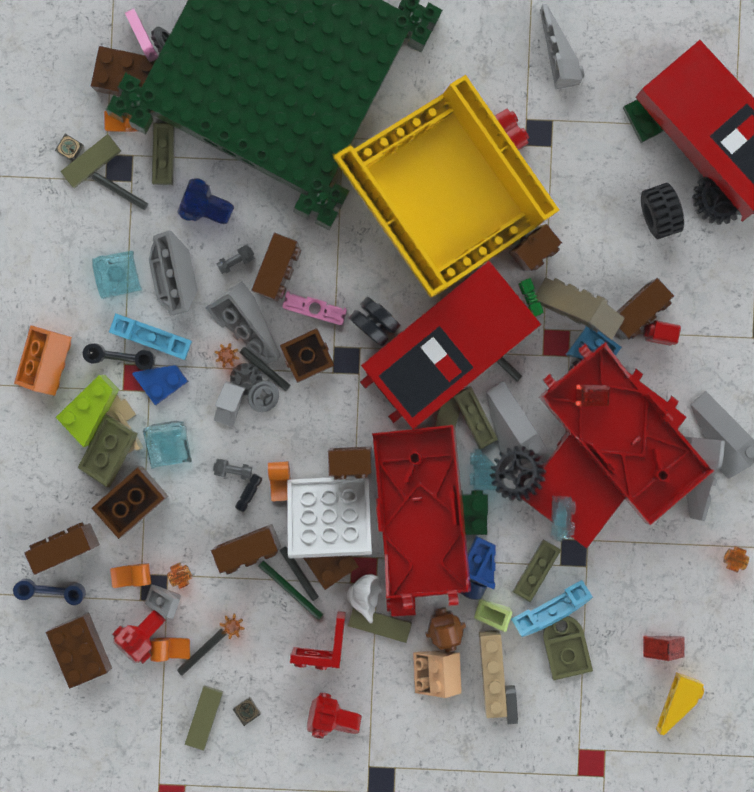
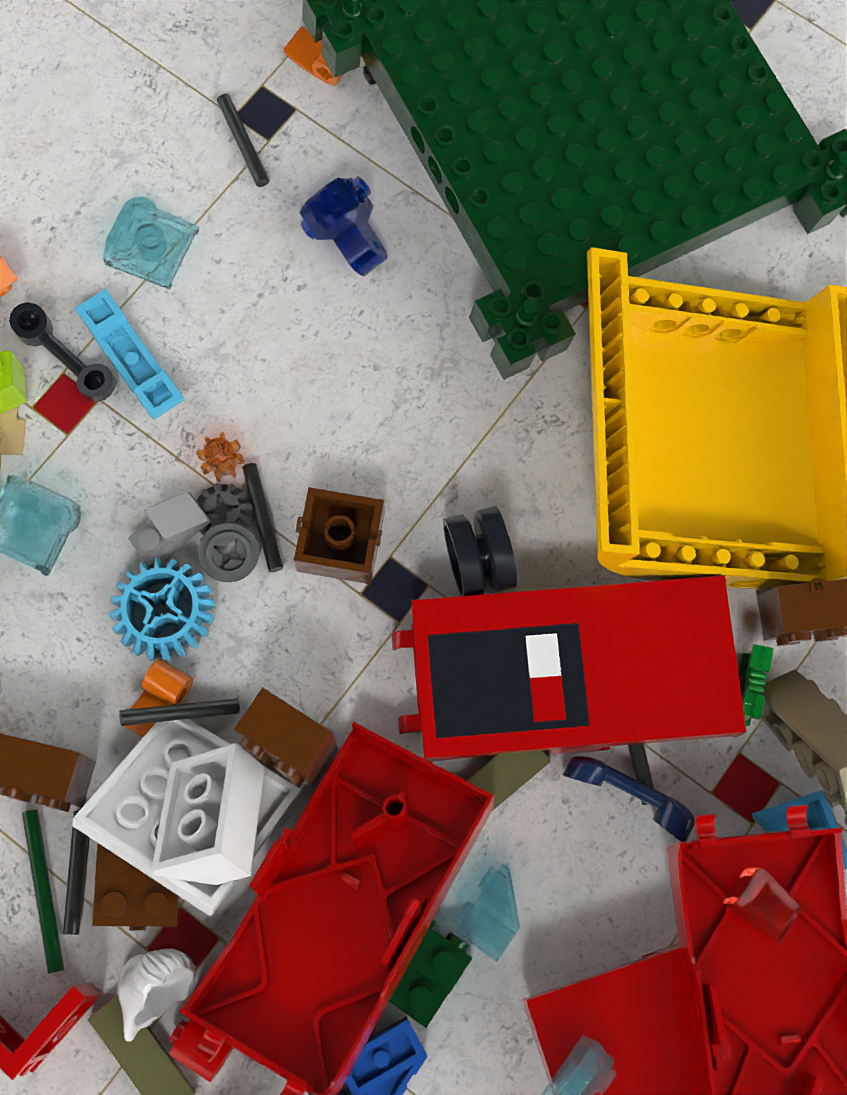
camera: 30 degrees right, 15 degrees down
(69, 147) = (217, 42): tile -> none
(90, 161) = (233, 77): olive tile -> none
(160, 382) = (94, 431): blue wing -> none
(163, 154) = (340, 132): olive tile -> none
(172, 273) = (231, 286): light grey wedge -> none
(221, 468) = (85, 618): dark grey bar -> none
(242, 316) = (285, 413): light grey wedge -> none
(245, 254) = (354, 335): dark grey bar -> none
(248, 492) = (95, 686): black axle -> none
(253, 450) = (170, 595): none -> medium azure gear
(276, 267) = (386, 377): reddish brown brick -> none
(294, 479) = (179, 712): none -> pearl dark grey bar
(301, 305) = (414, 499): bright pink piece -> none
(342, 515) = (210, 817): none -> white slope
(475, 417) = (536, 816): olive tile -> none
(502, 473) = (522, 933): black gear -> none
(512, 423) = (586, 885): light grey wedge -> none
(531, 377) = (670, 812): none -> dark blue piece

